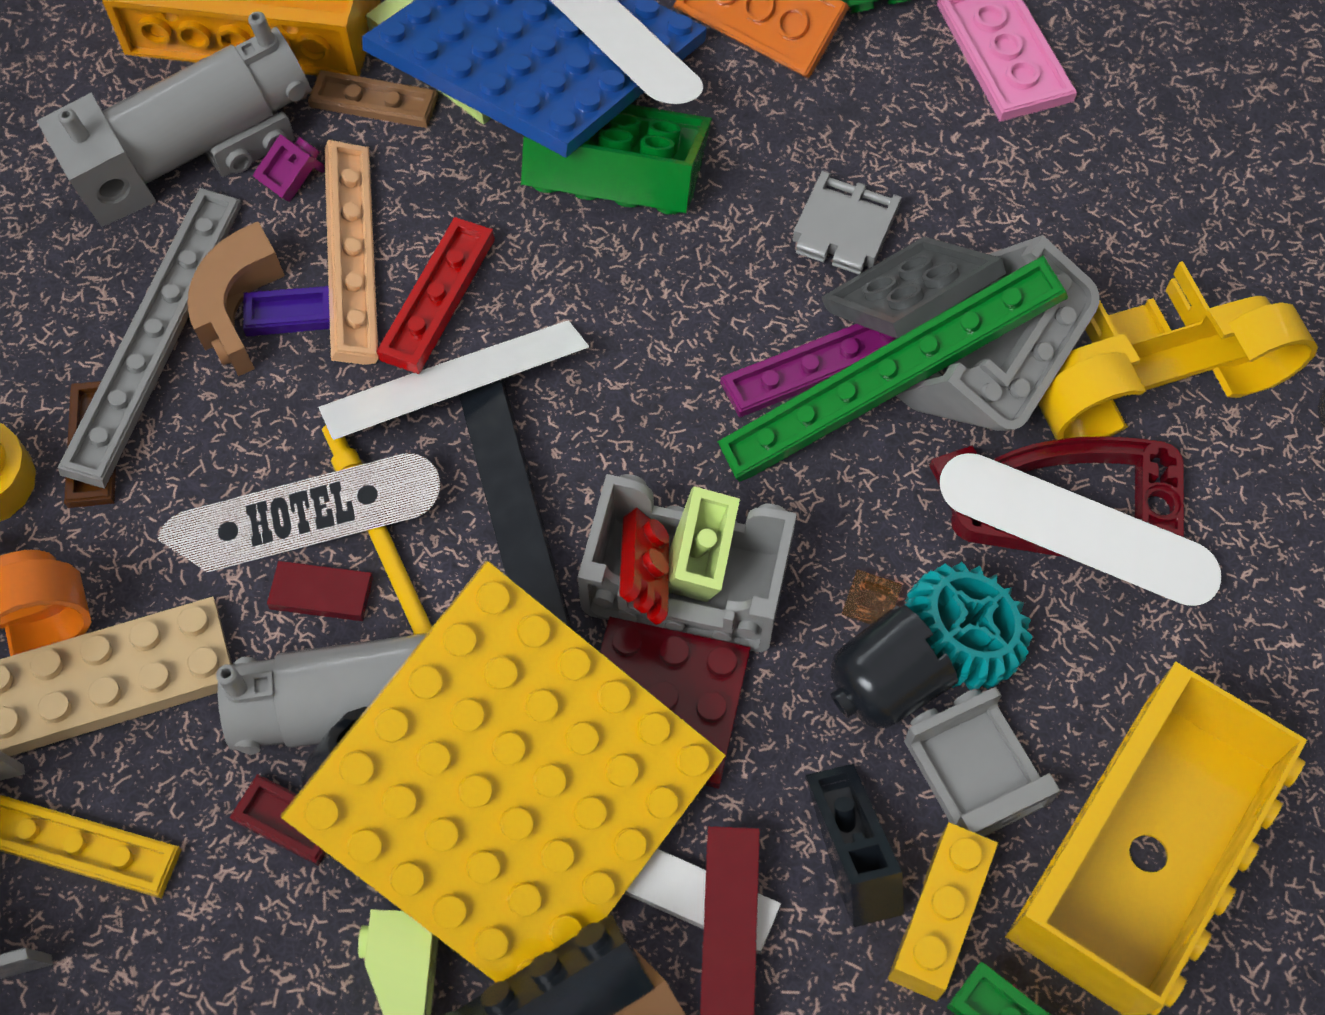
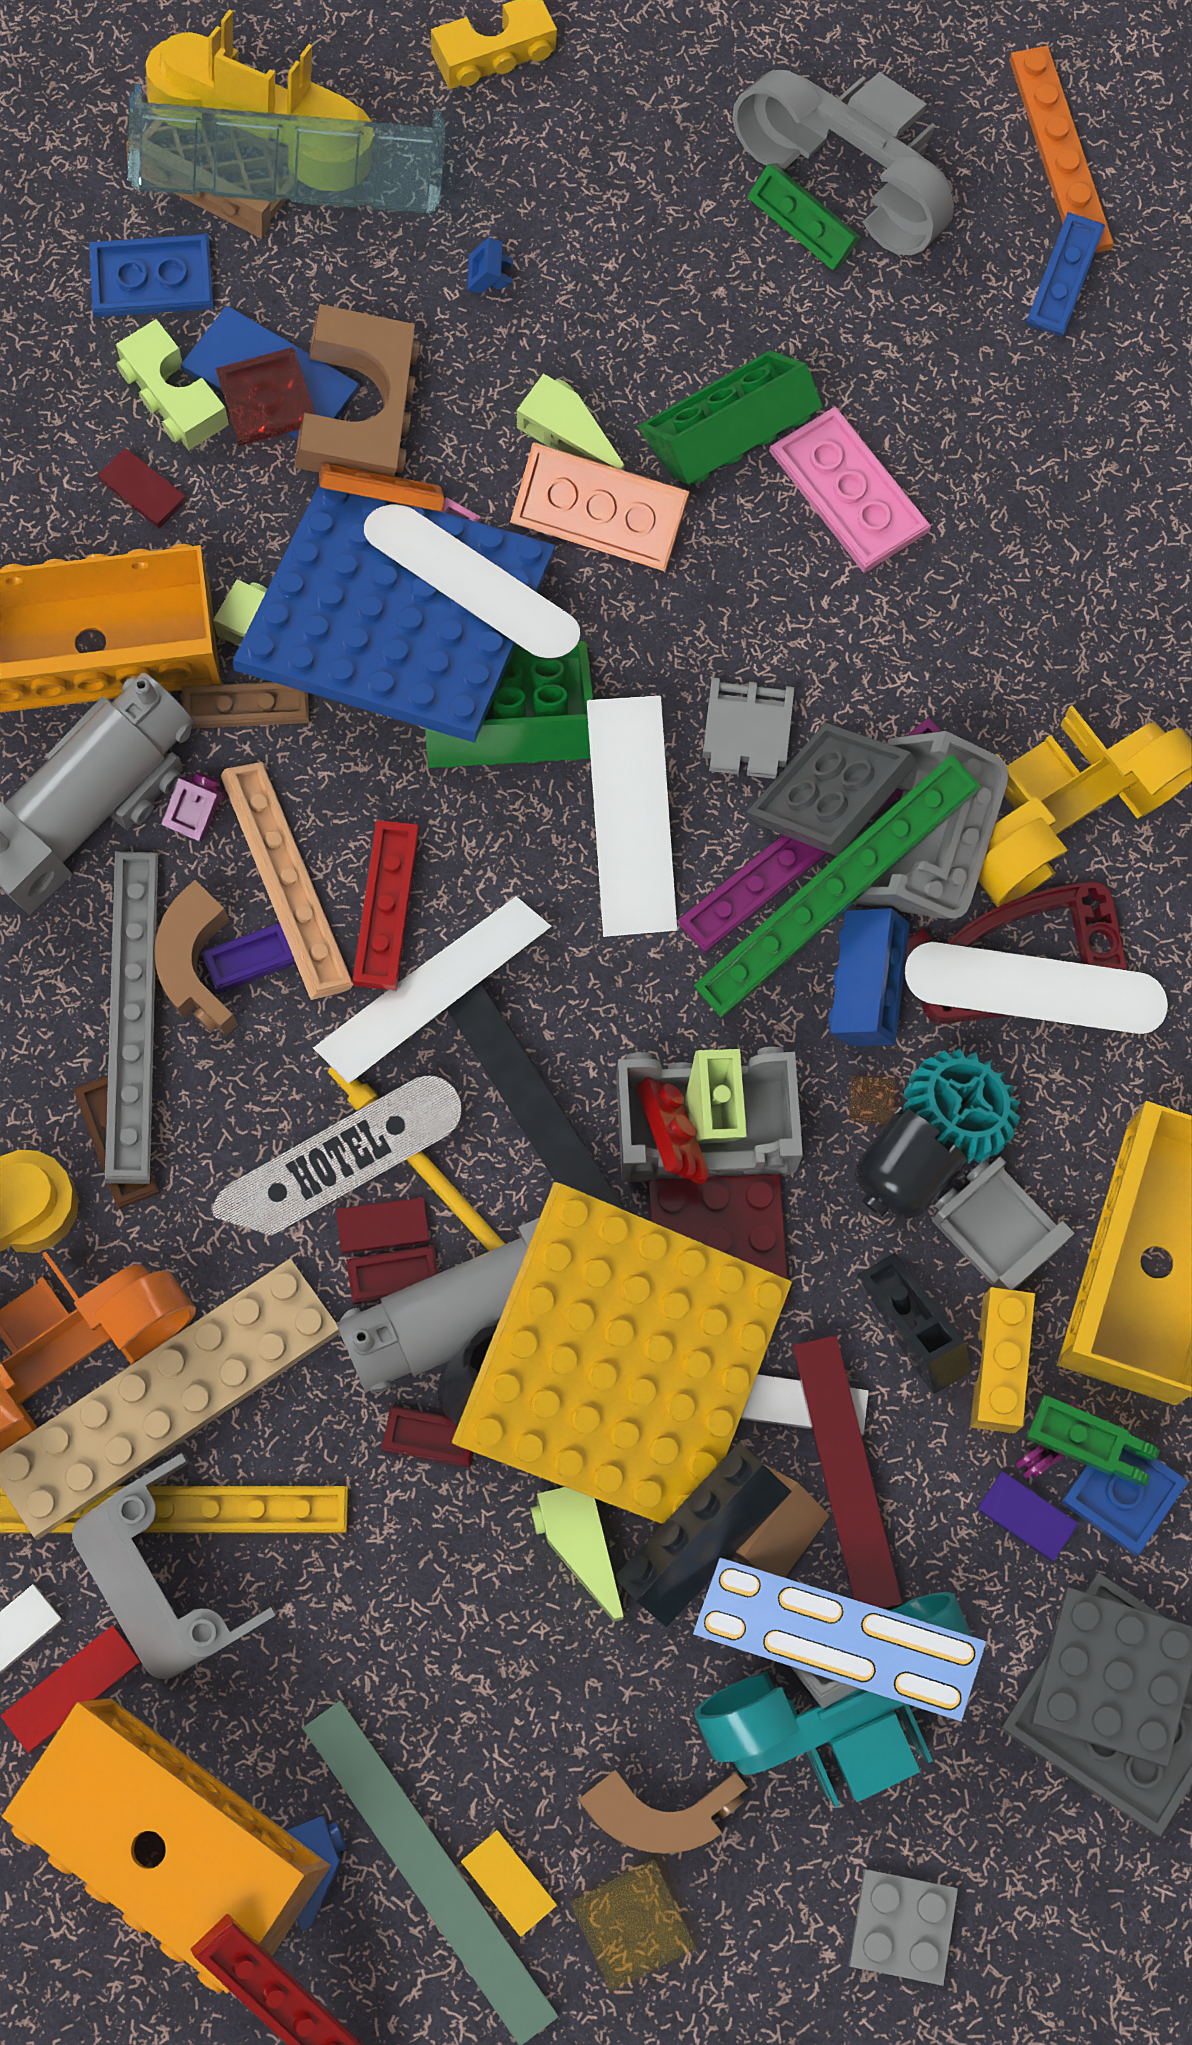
camera: 20 degrees left, 10 degrees up
(297, 633) = (387, 1273): none -> dark red tile
(702, 267) = (631, 815): none -> white sticker
(902, 475) = (869, 977): none -> blue brick

